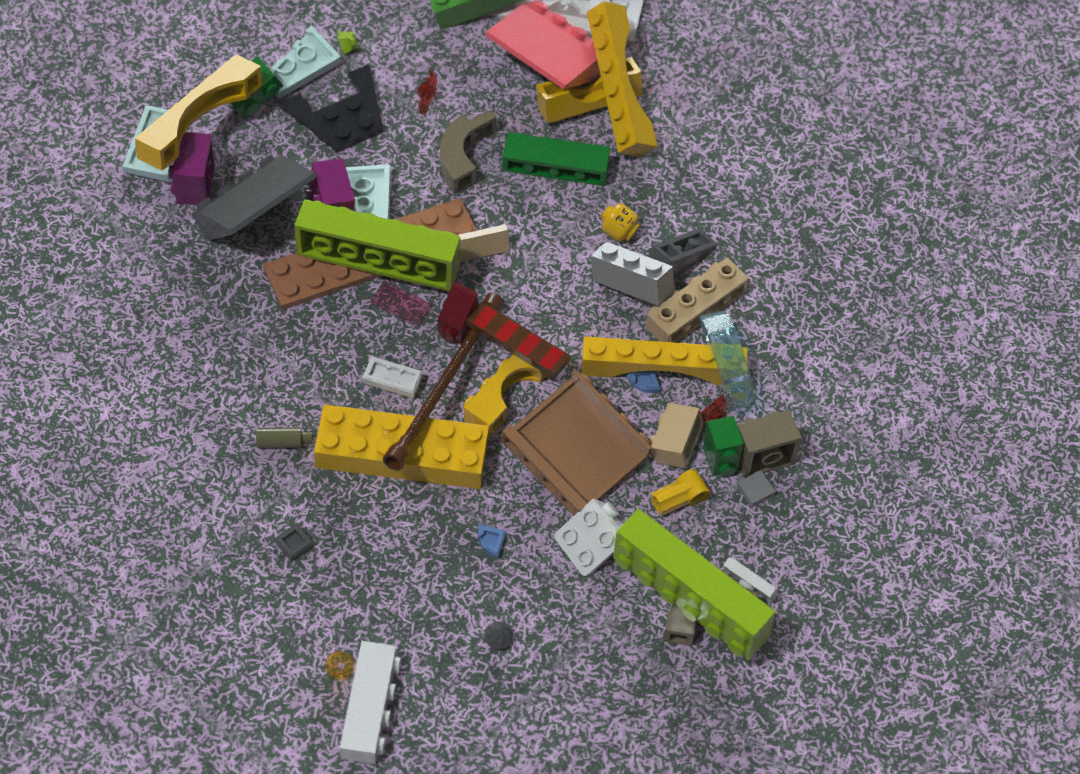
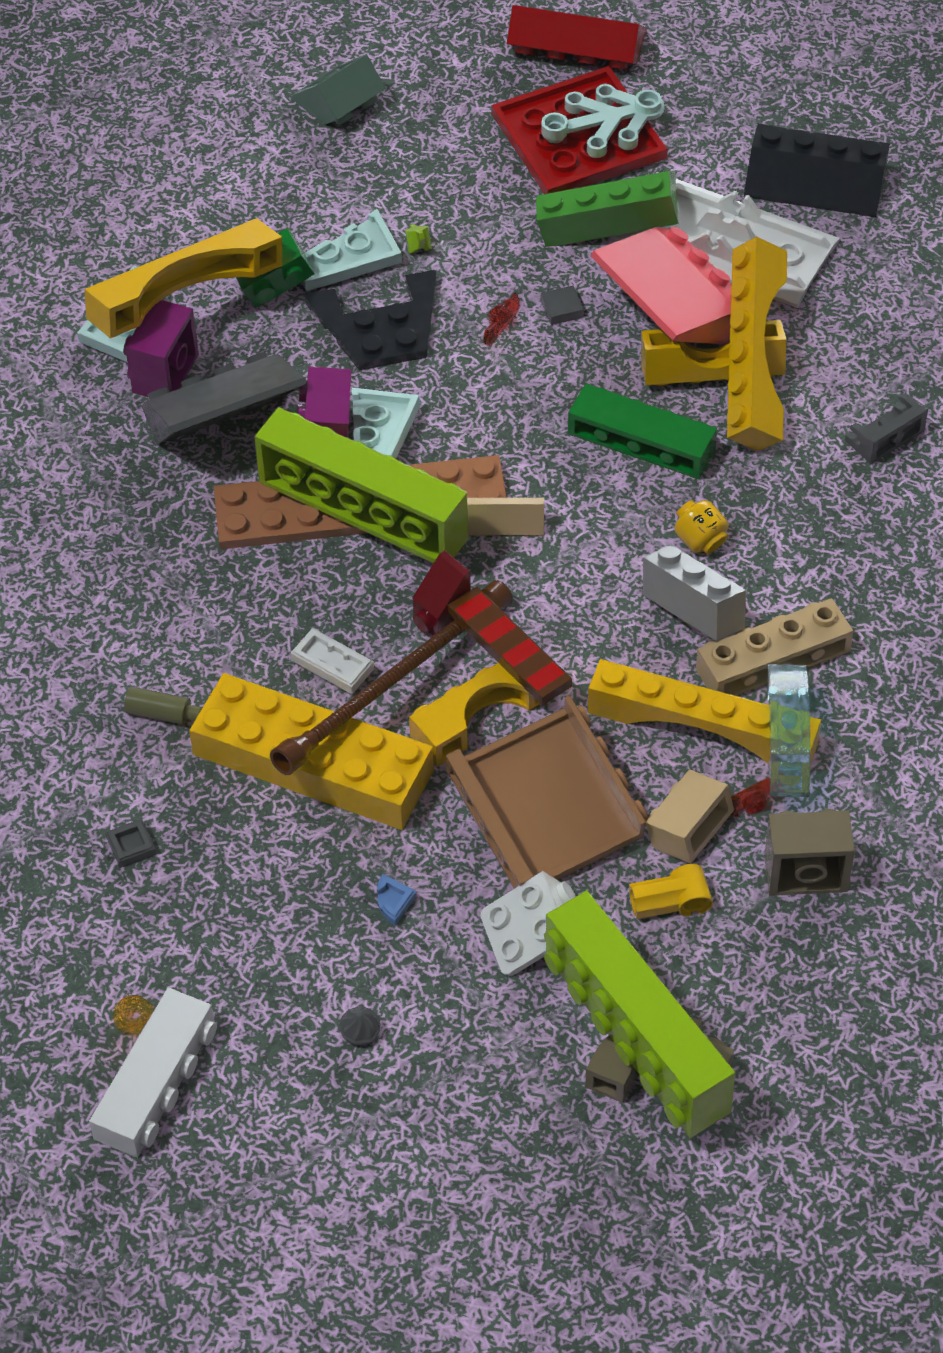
camera: 20 degrees right, 5 degrees down
(400, 303) = (376, 571): clear pink tile -> none
(461, 133) = (516, 384): dark tan arch -> none
(467, 73) = (562, 305): none -> dark grey tile
(644, 380) = (670, 736): medium blue tile -> none
(683, 250) = (774, 581): dark grey slope -> none
(723, 446) = (746, 842): green brick -> none
(725, 122) = (889, 430): none -> dark grey hinge
(750, 580) = (730, 1031): white plate -> none
(756, 488) = (780, 912): light grey tile -> none

